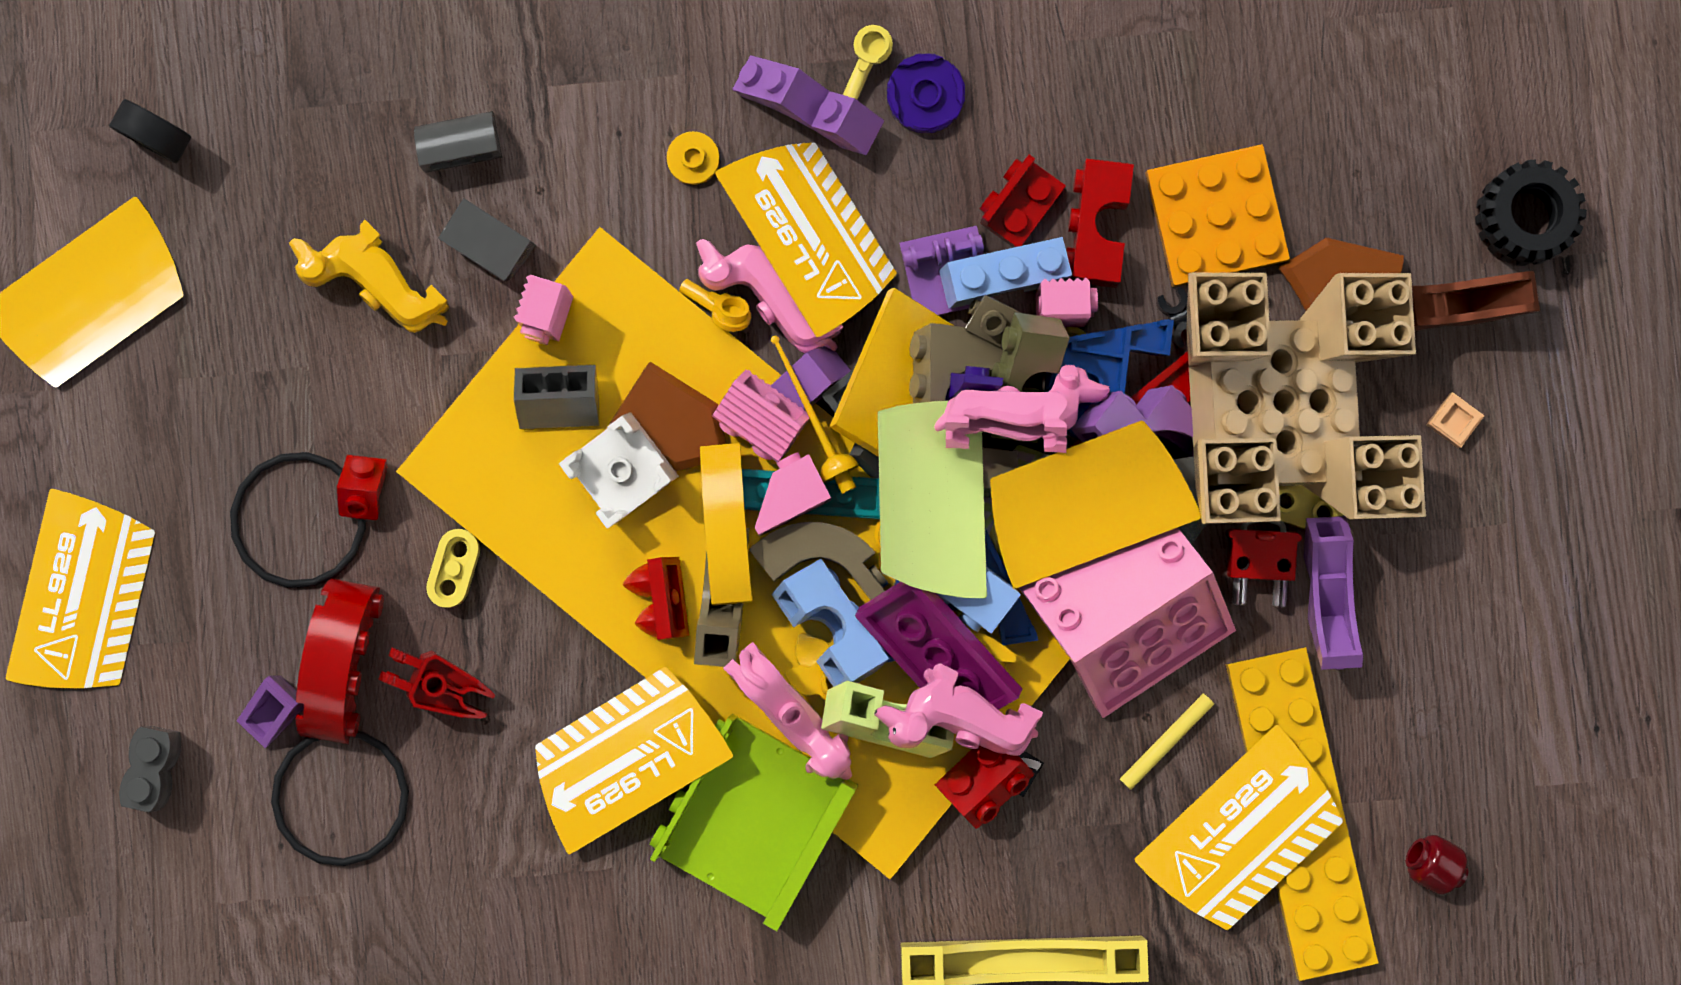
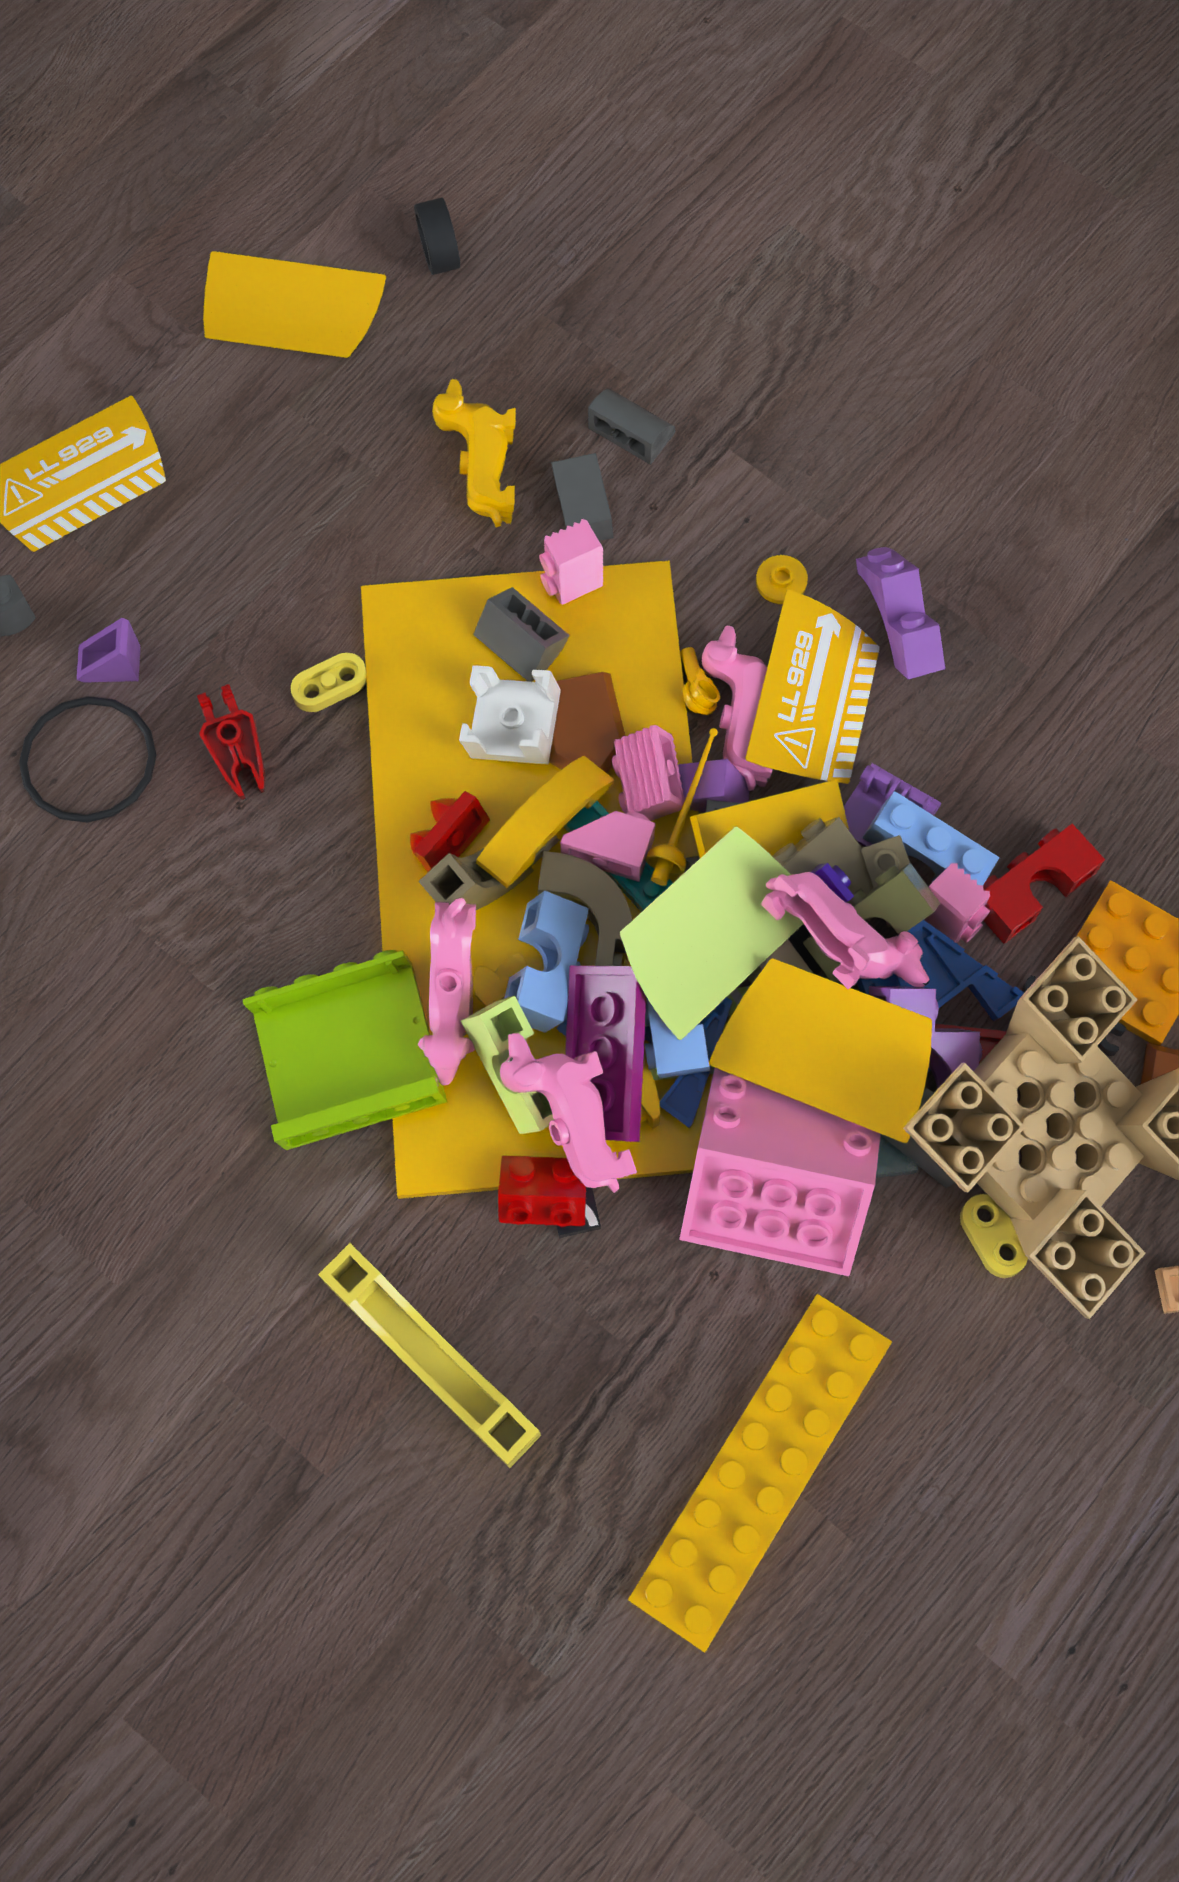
camera: 45 degrees right, 15 degrees down
(240, 546) = (263, 613): black piece -> none
(330, 660) = (174, 651): red brick -> none
(360, 487) = (326, 570): red bracket -> none
(626, 758) = (304, 917): yellow sticker -> none
(872, 47) = (985, 619): light yellow plate -> none
(925, 93) = (994, 685): dark purple tile -> none
(1021, 203) = (993, 814): red bracket -> none
(1167, 741) = (711, 1306): light yellow bar -> none
(1243, 832) = (701, 1435): yellow sticker -> none
(1262, 554) = (929, 1235): red piece -> none
(1331, 593) = (955, 1314): medium lavender arch -> none
(1437, 864) = (831, 1620): dark red head -> none

